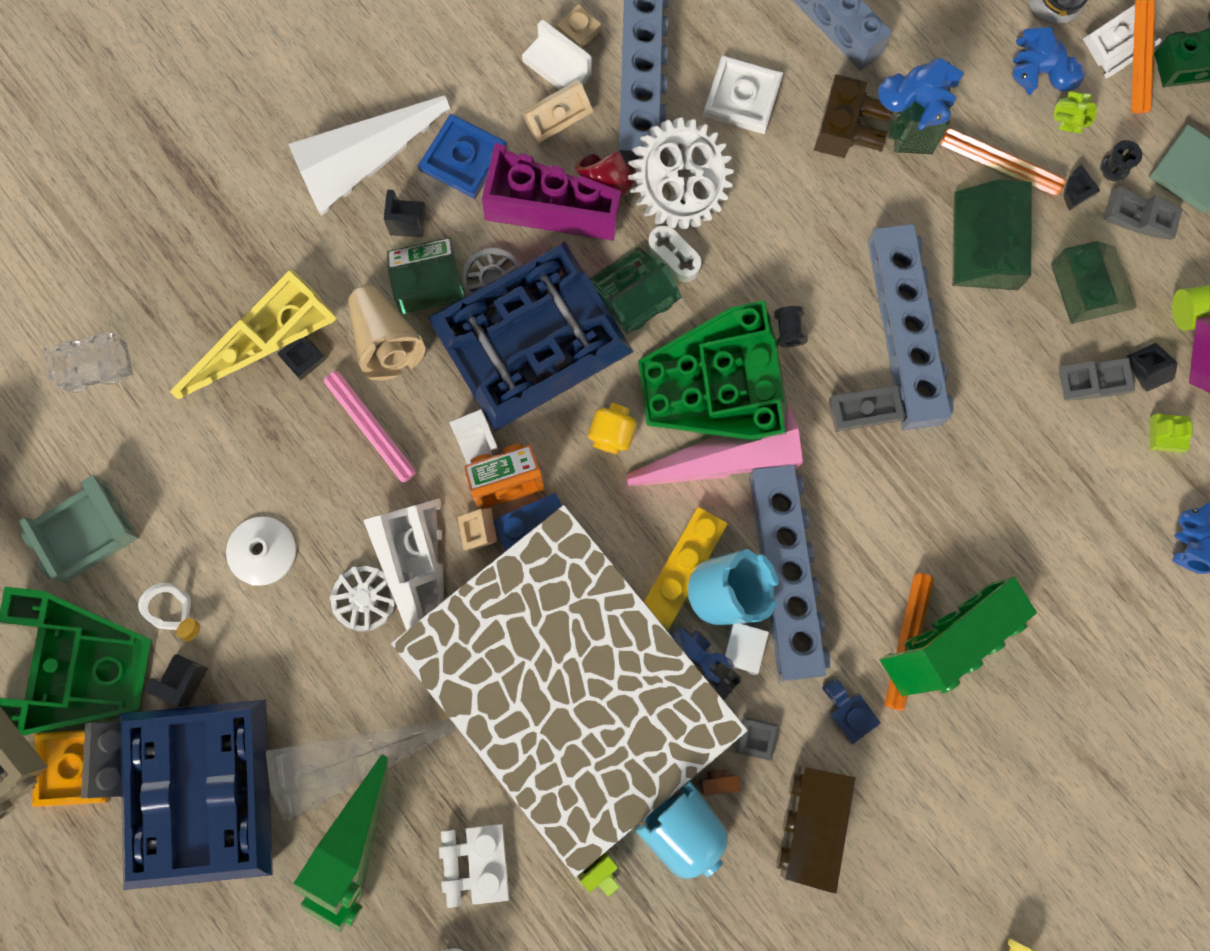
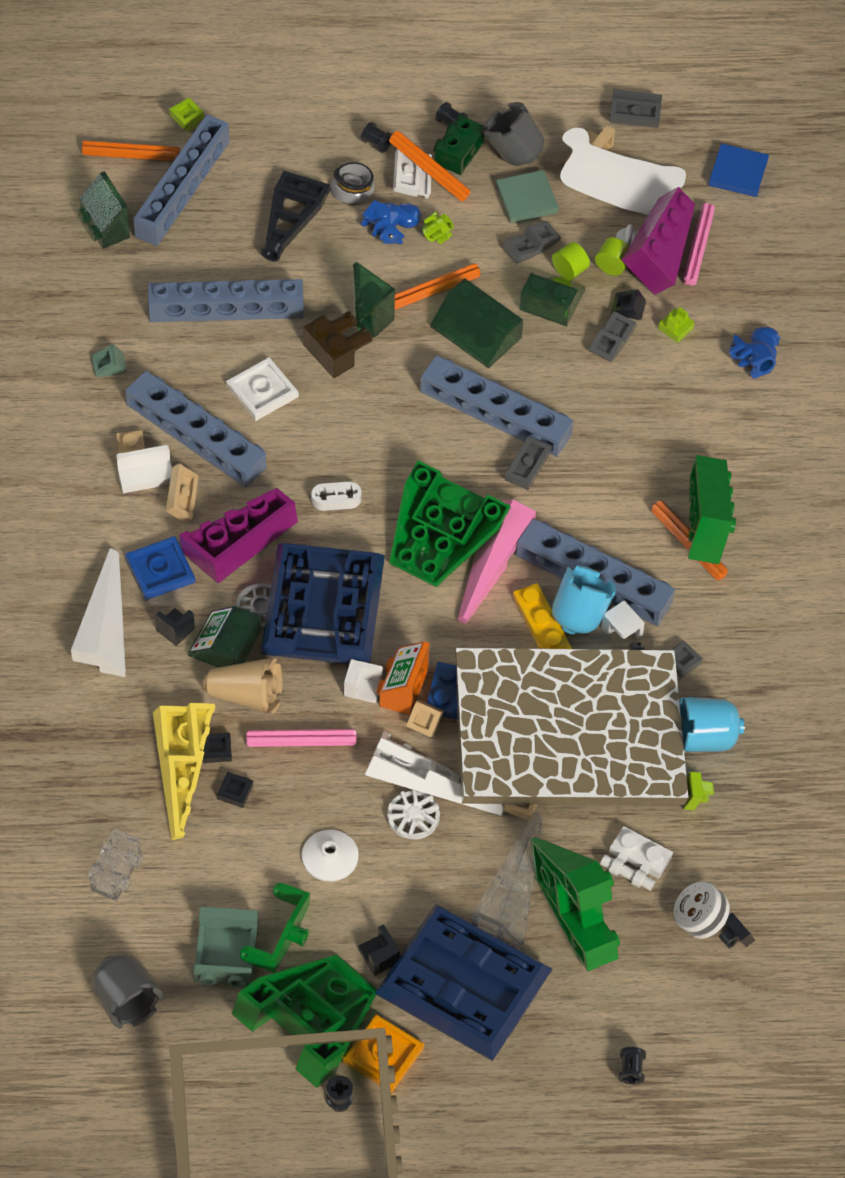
camera: 55 degrees left, 20 degrees down
(101, 761) = (403, 1025): dark grey plate -> none
(130, 581) = (291, 933): none -> green piece
(187, 628) = (349, 923): white piece -> none
(267, 407) = (235, 789): none -> black tile
(610, 171) = (258, 485): dark red hair -> none
(612, 429) = (424, 602): yellow head -> none
(636, 289) = (343, 525): clear green slope -> none
(697, 646) = (615, 643): dark blue plate -> none
(708, 173) = (291, 452): white gear -> none
(720, 782) = (695, 688): reddish brown plate -> none
(790, 326) = (447, 467): black bush -> none
(816, 828) = (760, 655): dark brown slope -> none
(851, 714) = (708, 599): dark blue plate -> none
(926, 86) = (363, 282): blue animal -> none
(1079, 188) = (486, 261): black tile -> none
(1124, 162) = (486, 230): black bush -> none
(1152, 269) = (571, 261): none -> lime piece

